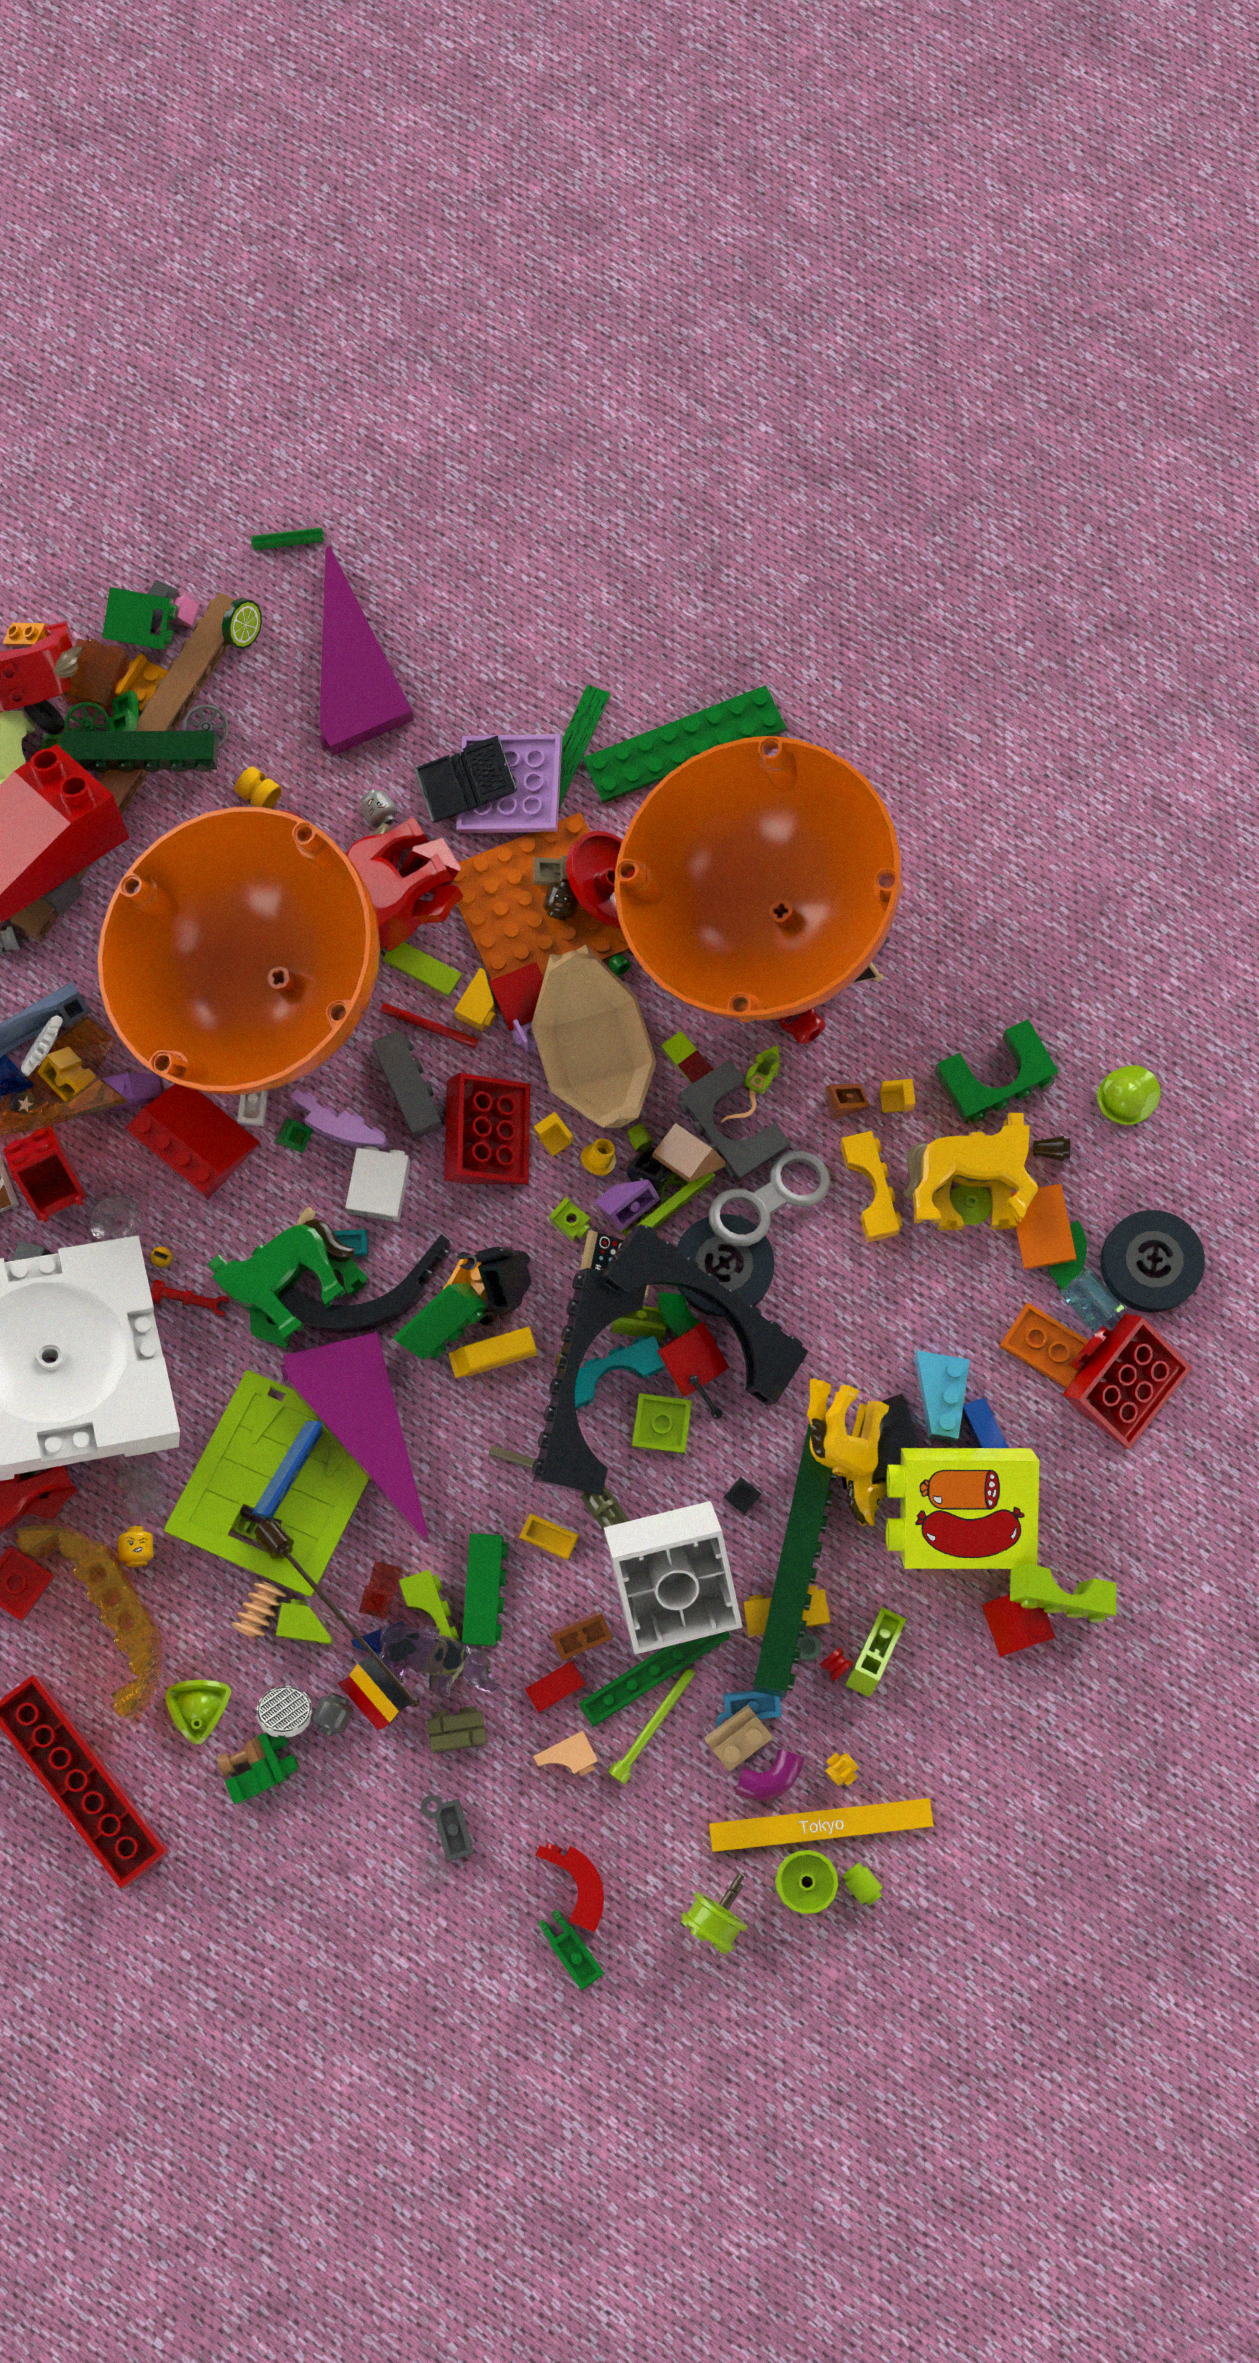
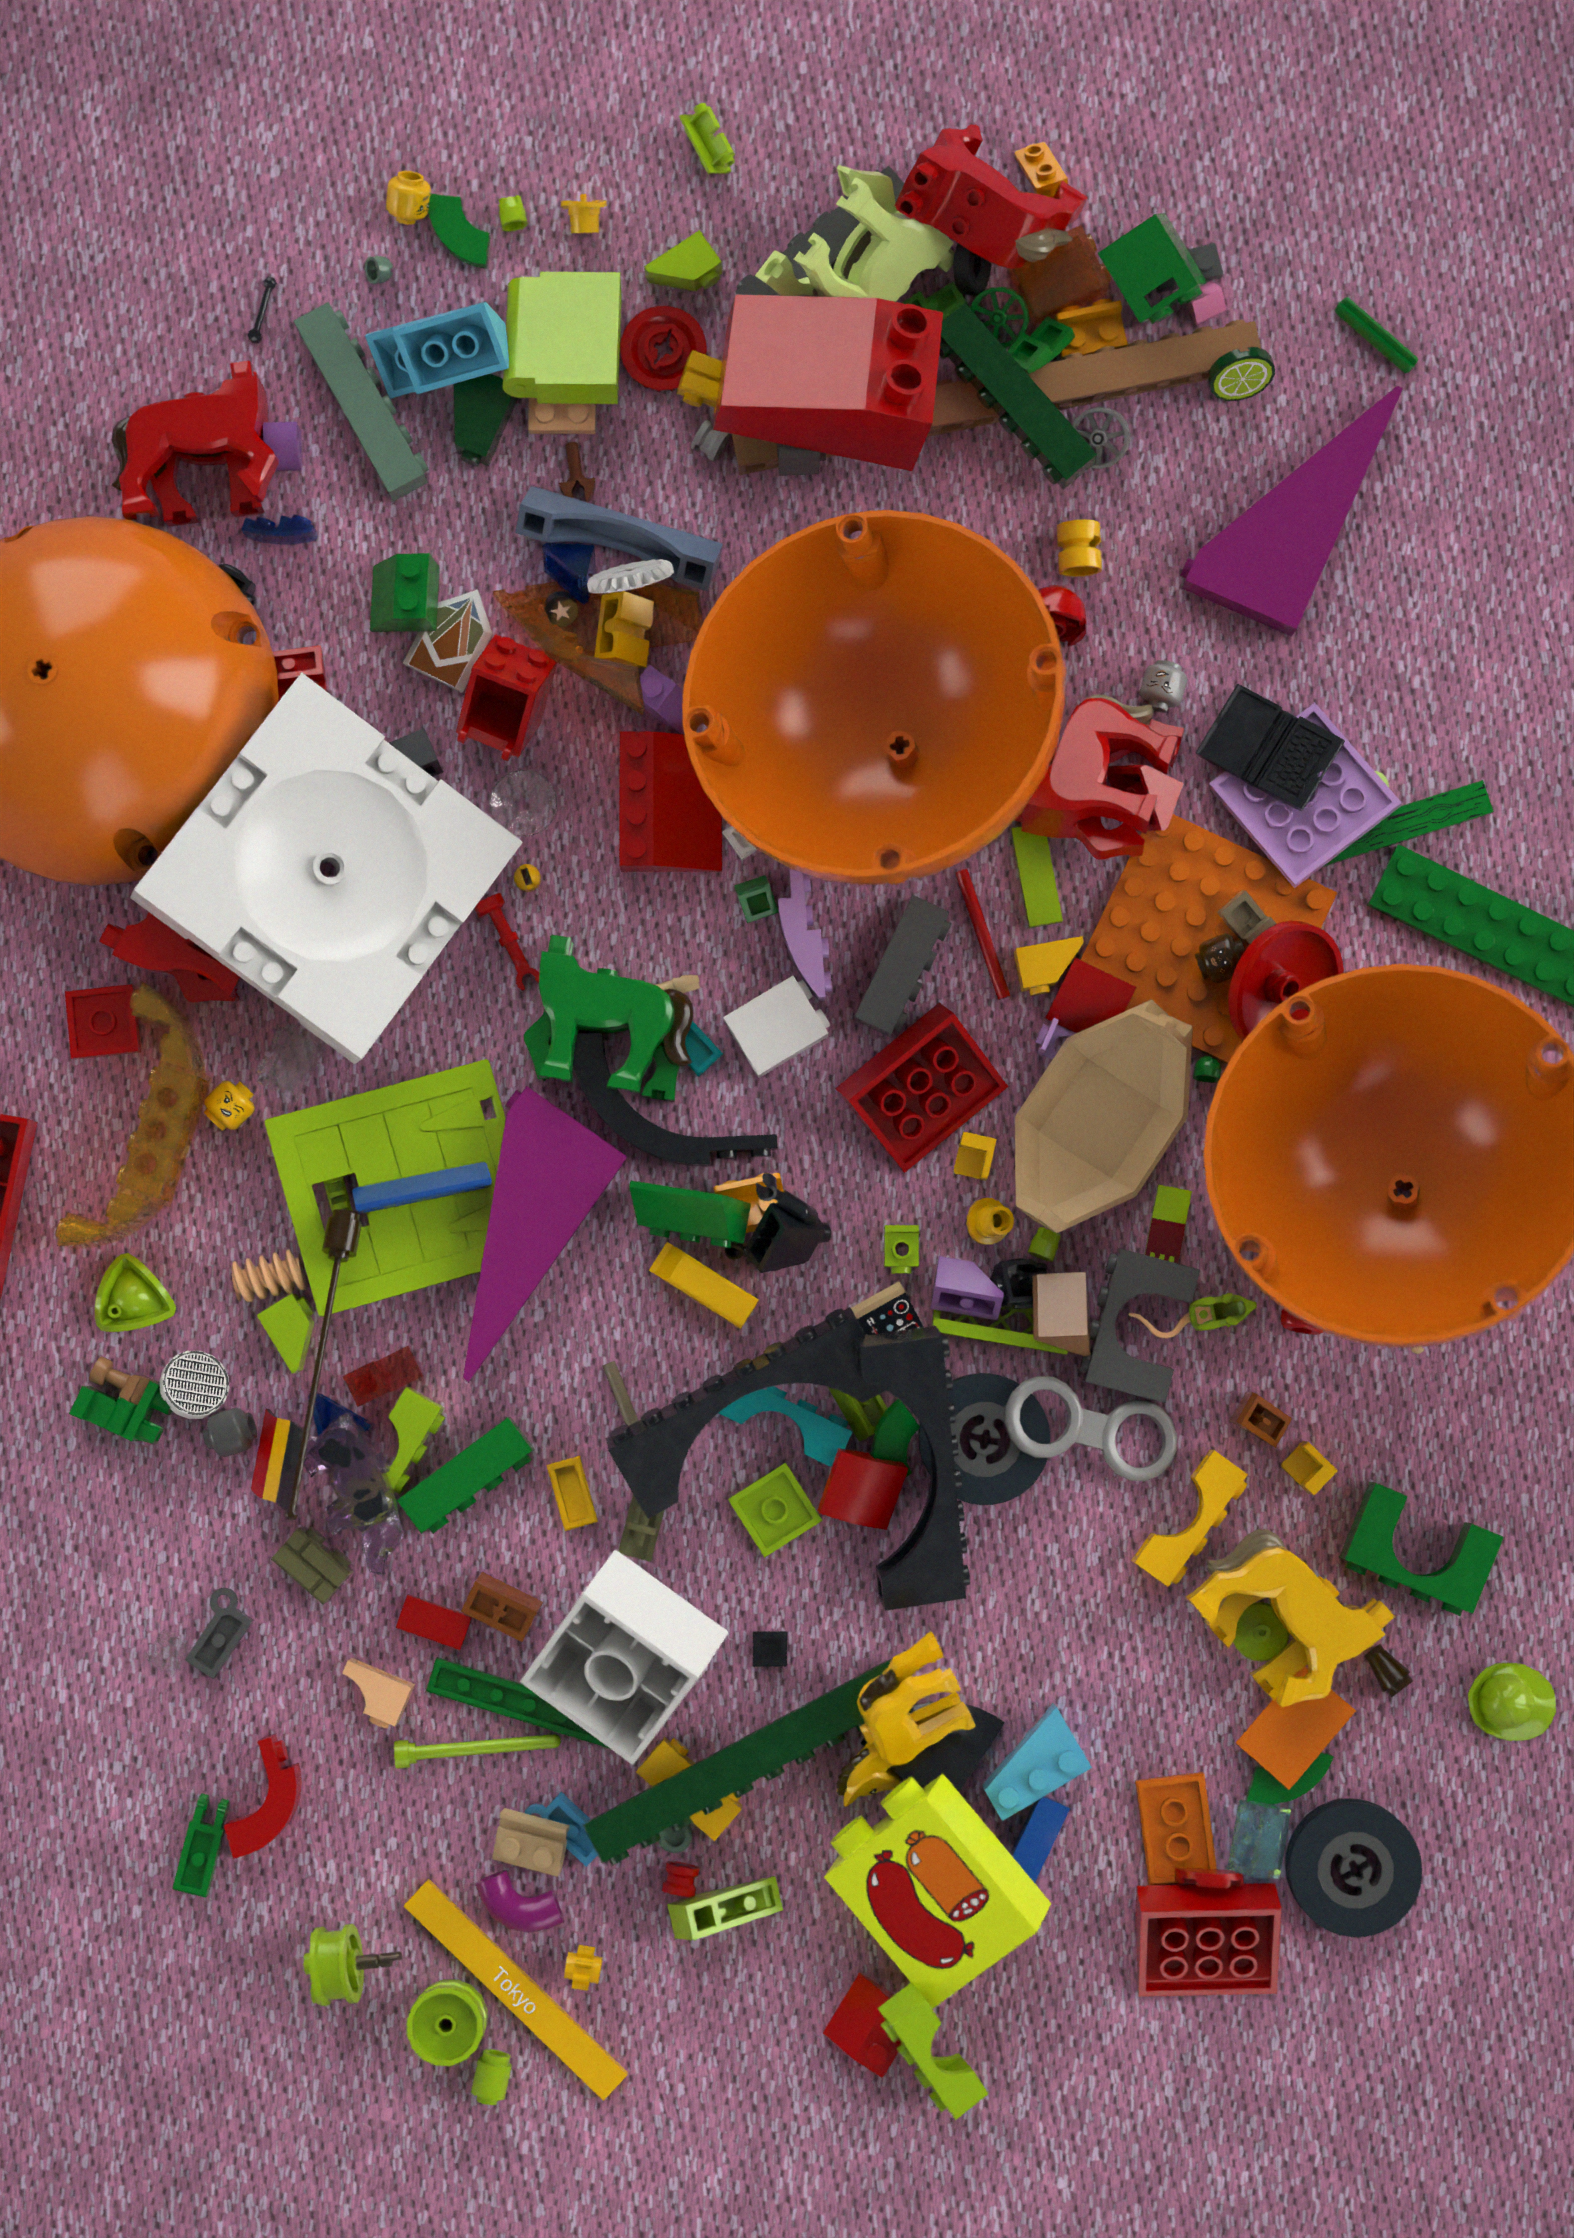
camera: 50 degrees right, 10 degrees up
(715, 1411) = (831, 1553): black hinge -> none

